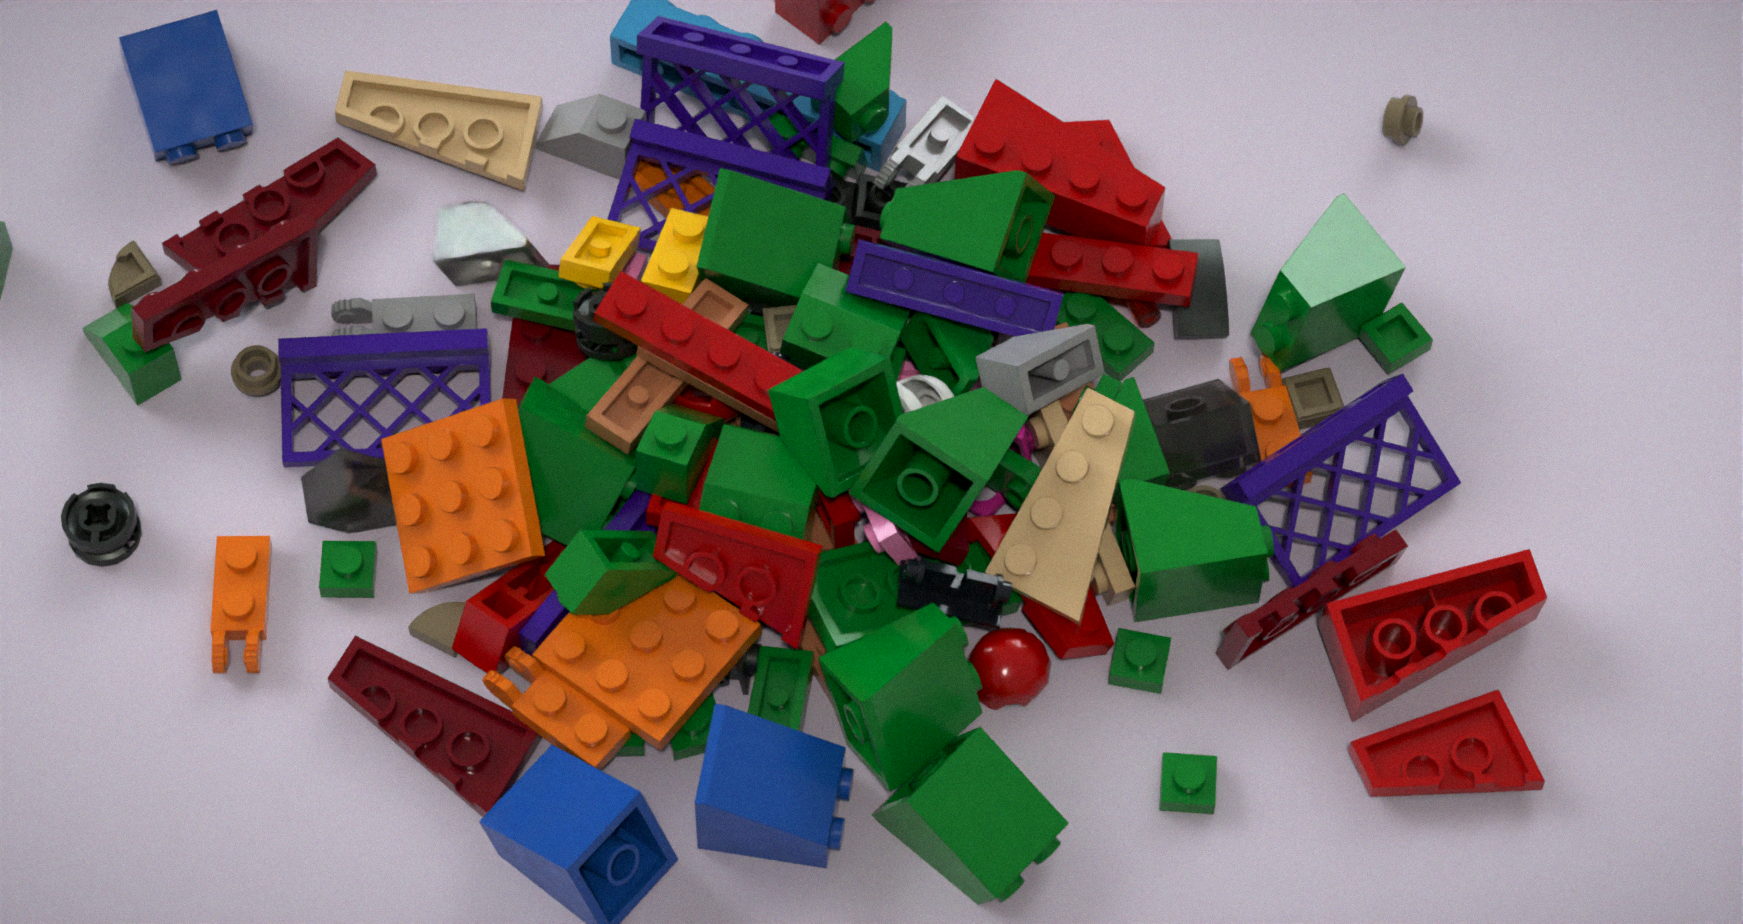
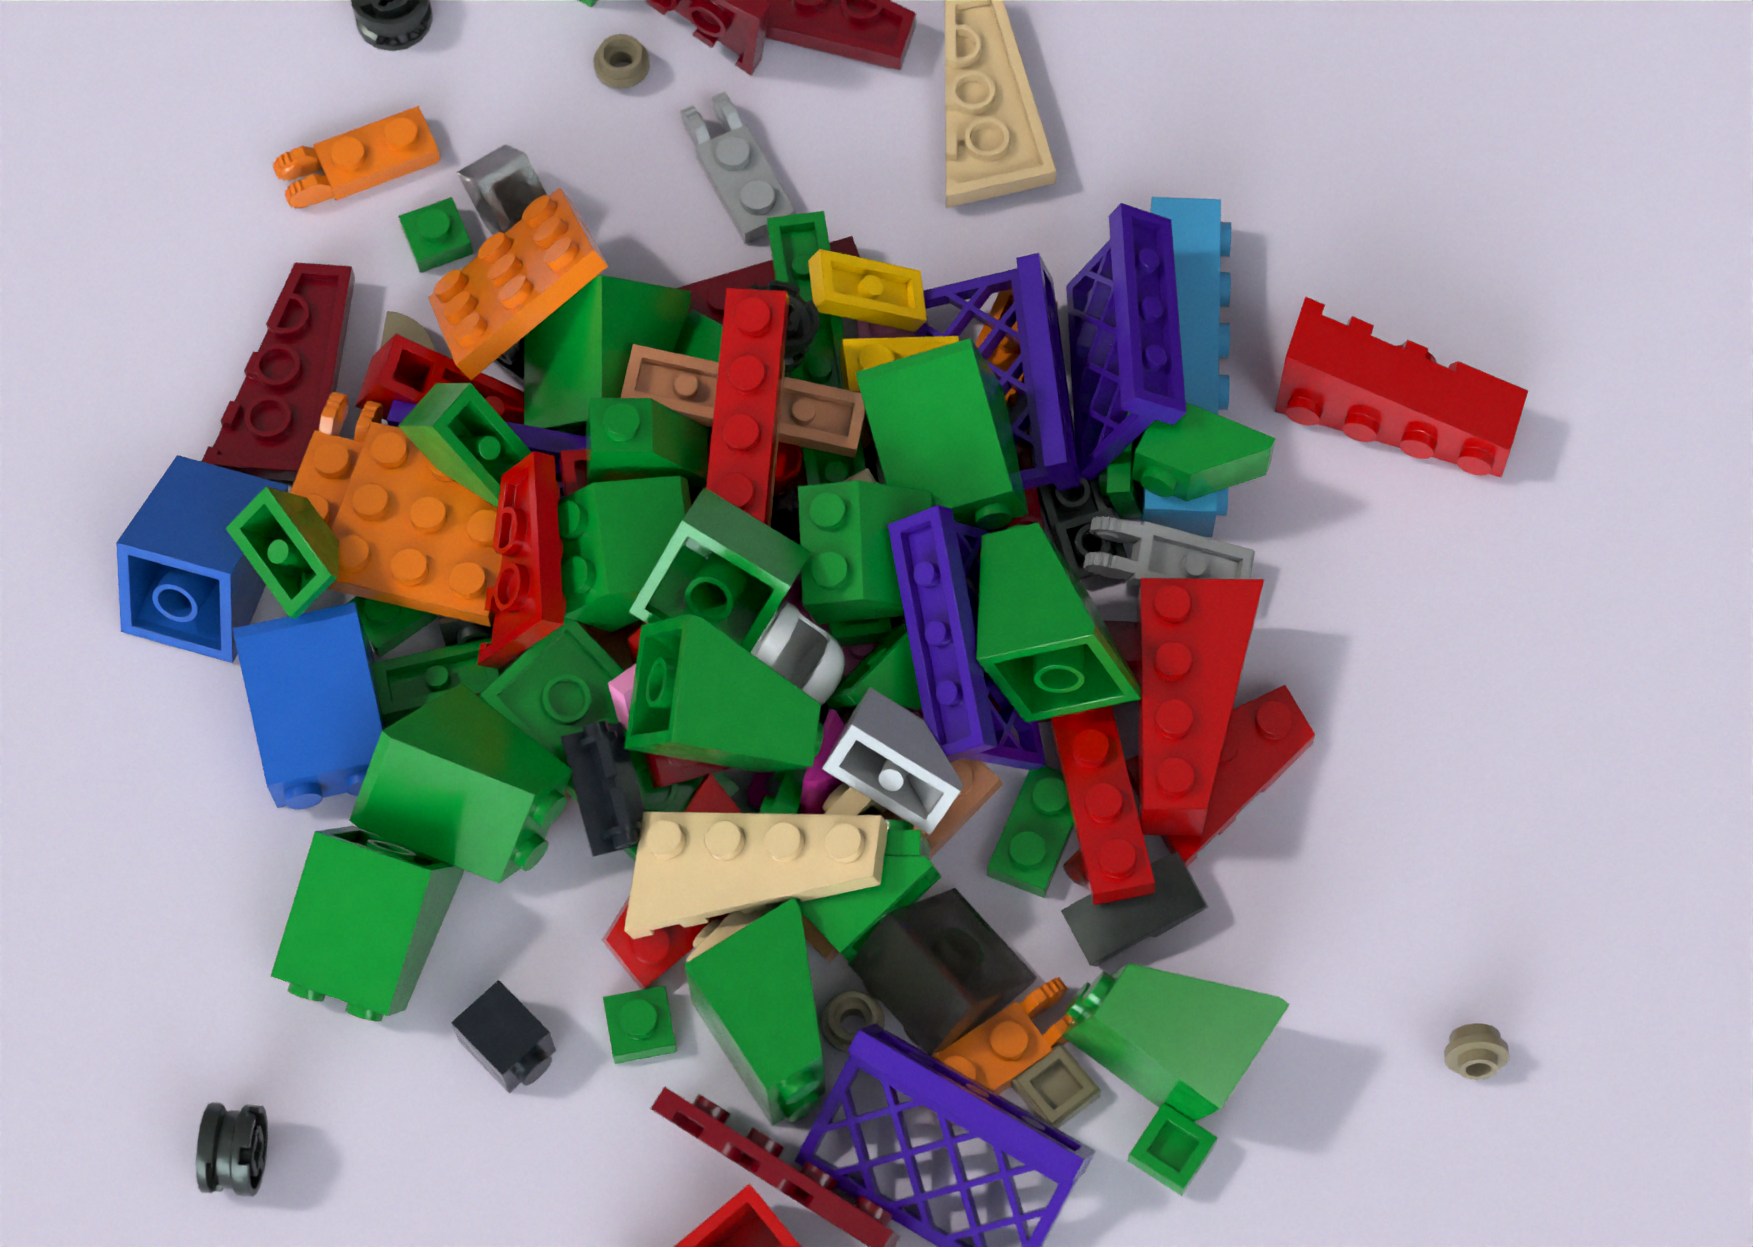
camera: 70 degrees right, 5 degrees up
(374, 356) = (672, 150): dark purple fence -> none
(475, 243) = (849, 186): clear smoke slope -> none
(591, 133) = (1040, 226): light grey slope -> none
(652, 733) = (287, 547): none -> green slope
(1010, 667) = (573, 892): red hair -> none
(1116, 753) = (505, 1038): none -> black brick
(1188, 783) = (509, 1130): green plate -> none

